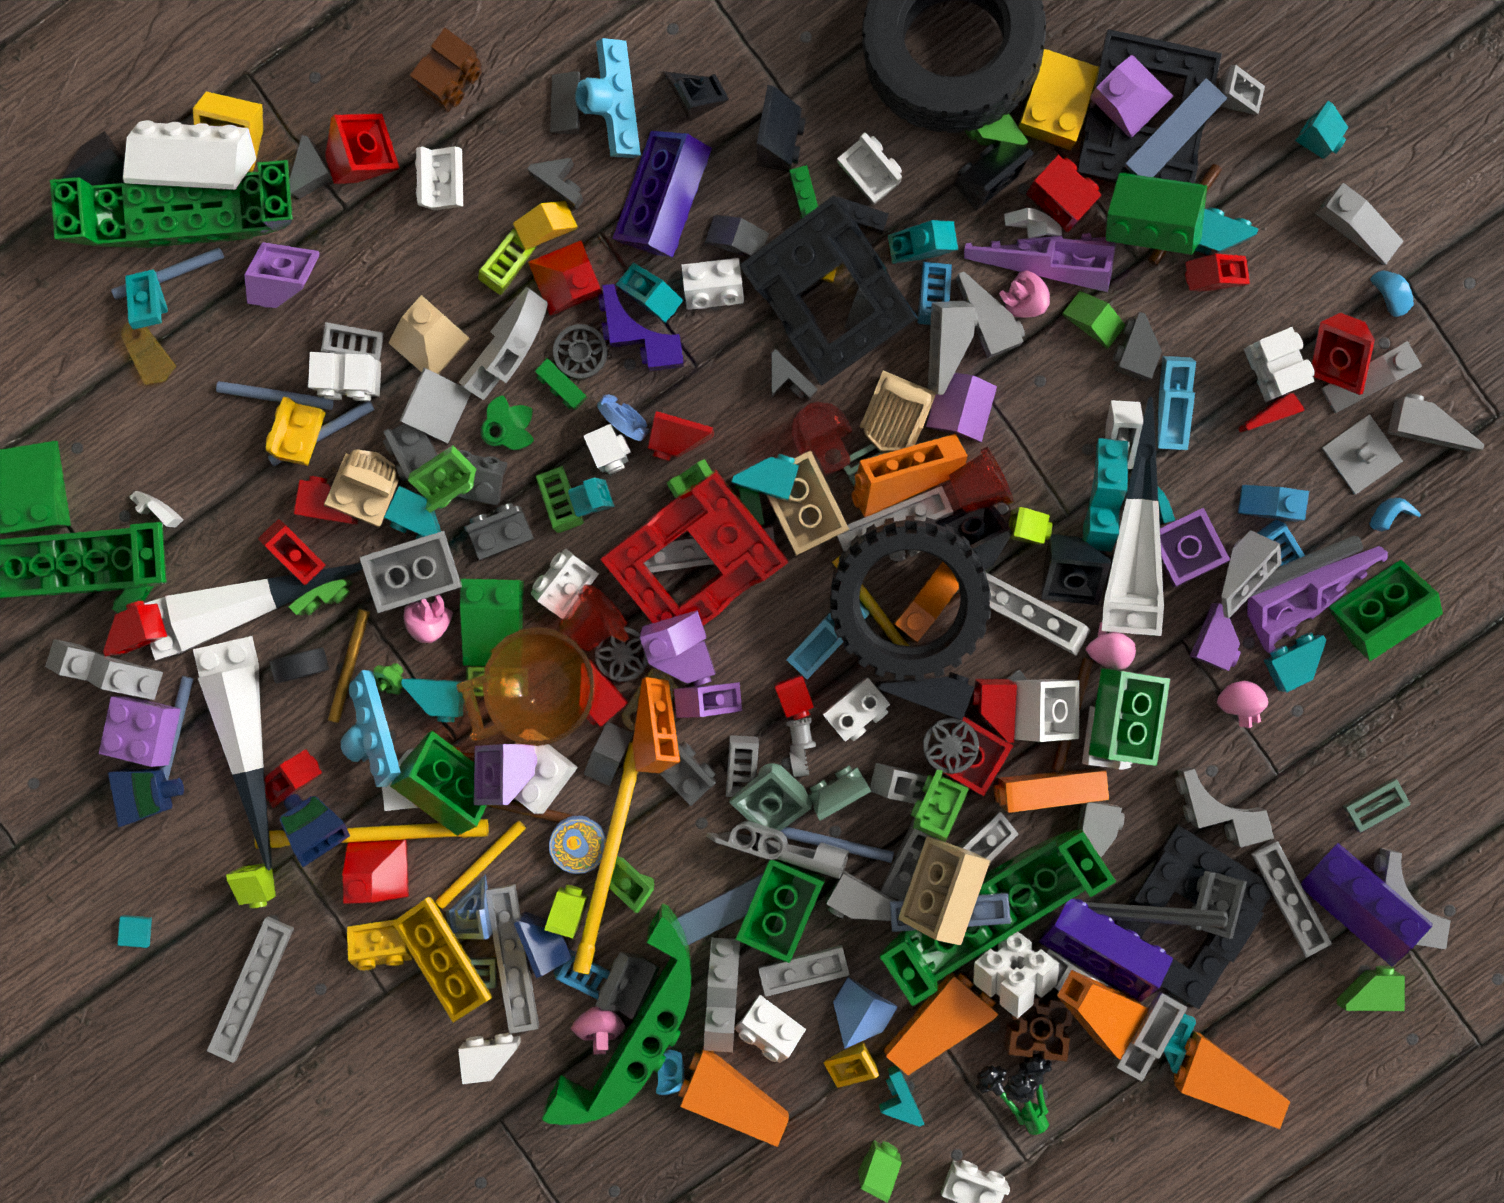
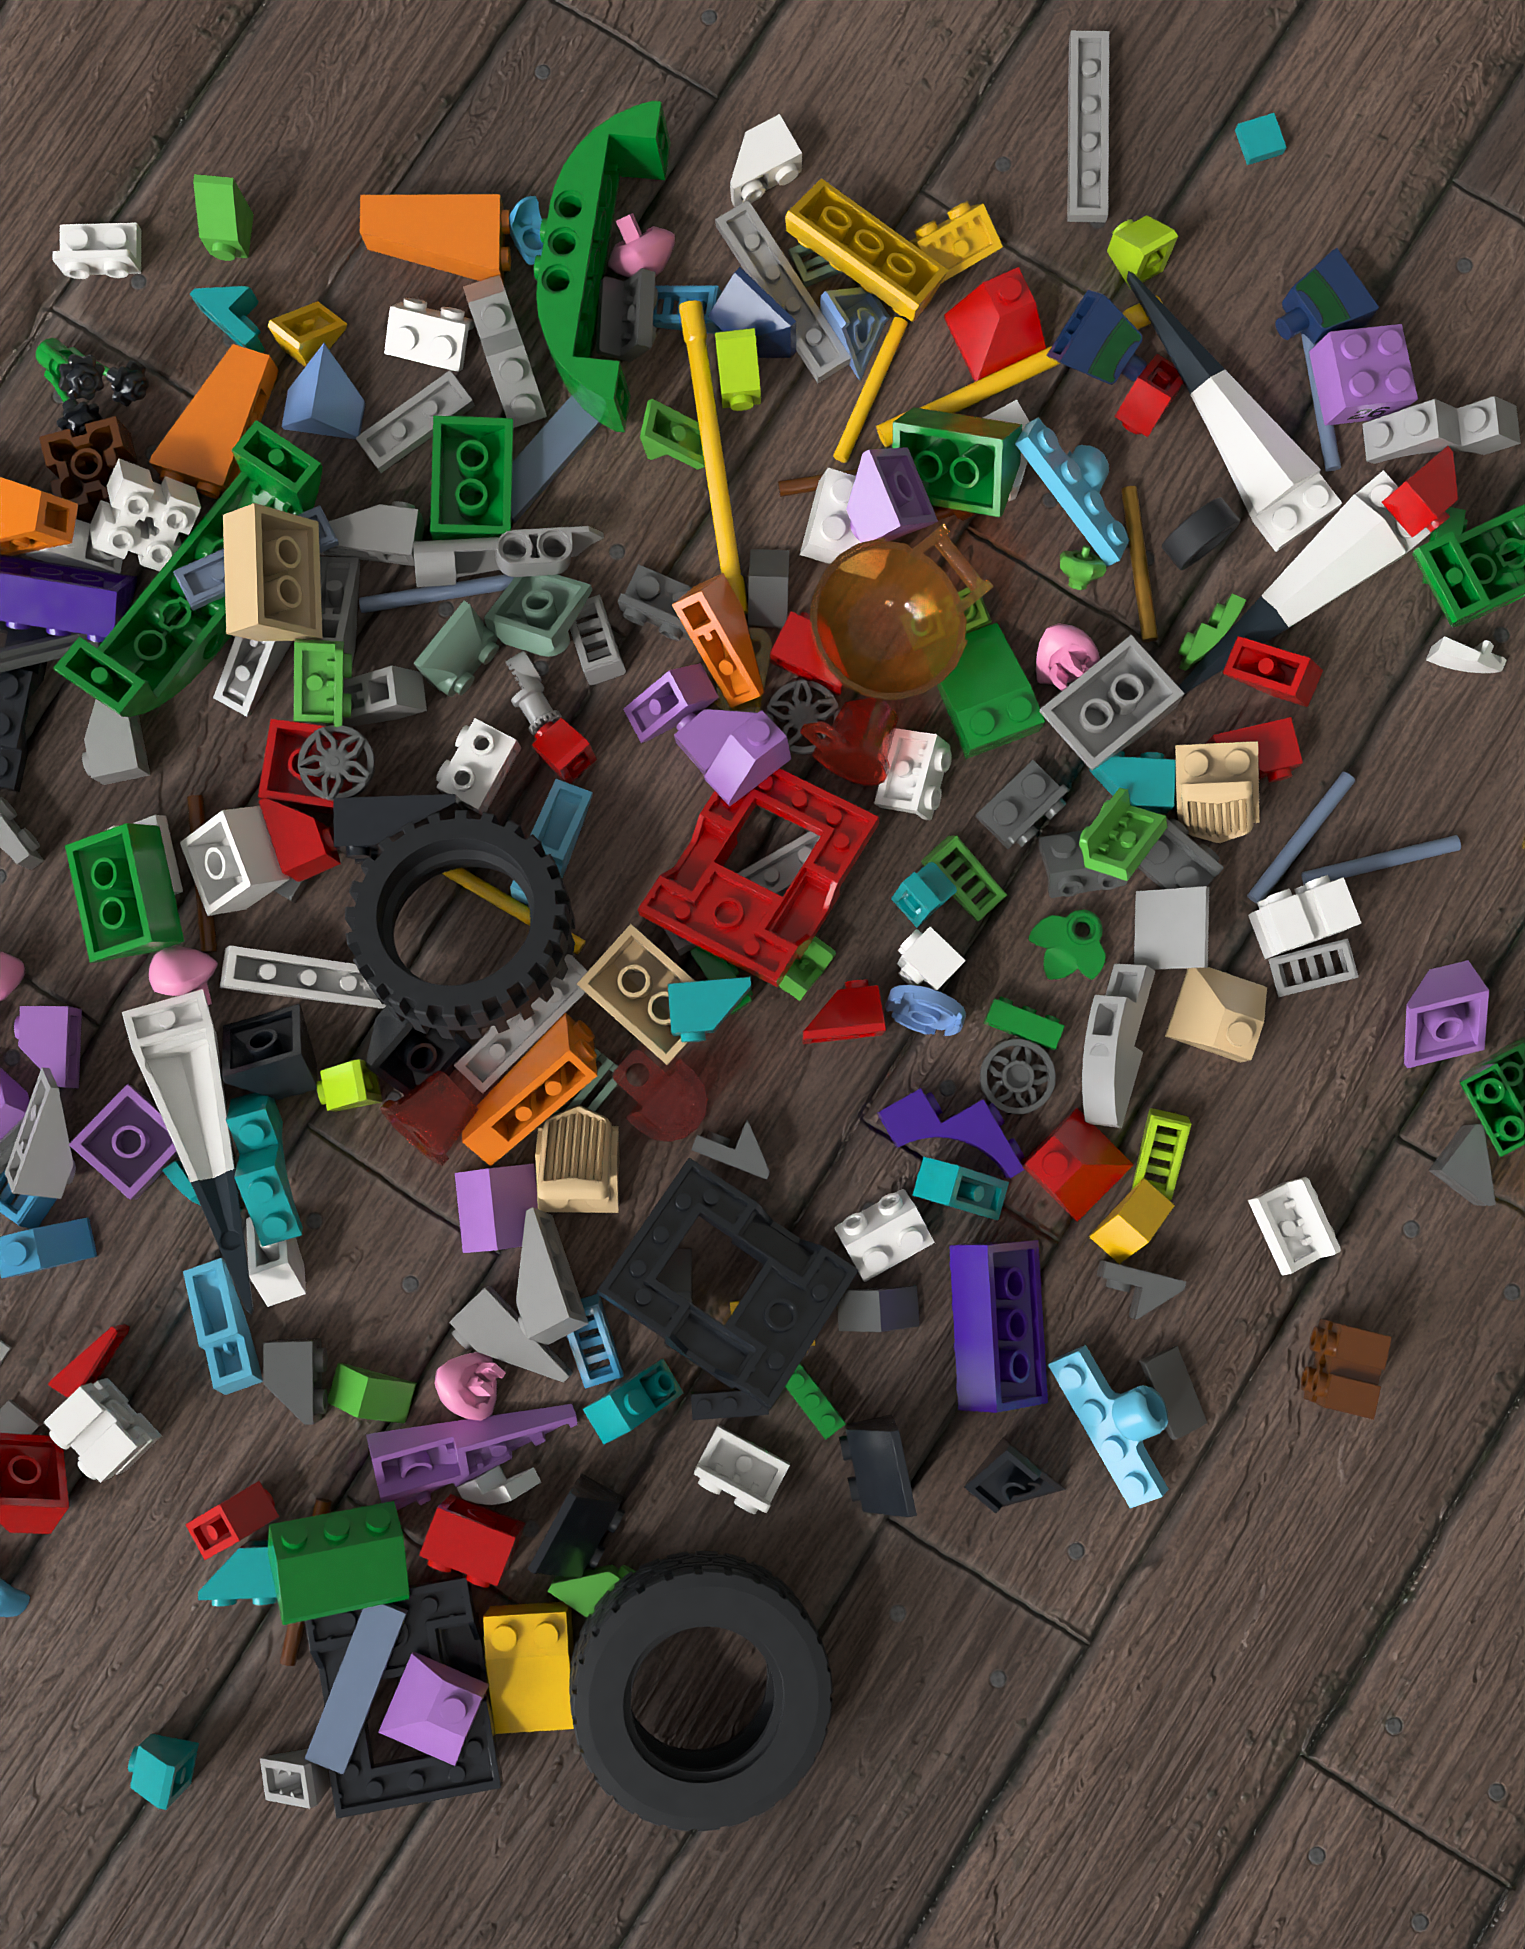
camera: 160 degrees right, 5 degrees down
(294, 432) = (1335, 822): yellow bracket -> none
(359, 148) = (1414, 1221): red slope -> none
(436, 697) = (1014, 567): teal slope -> none
(577, 844) = (760, 460): tile -> none
(927, 603) = (441, 931): orange slope -> none
(1051, 789) = (191, 764): orange slope -> none
(1360, 223) = (70, 1665): light grey slope -> none

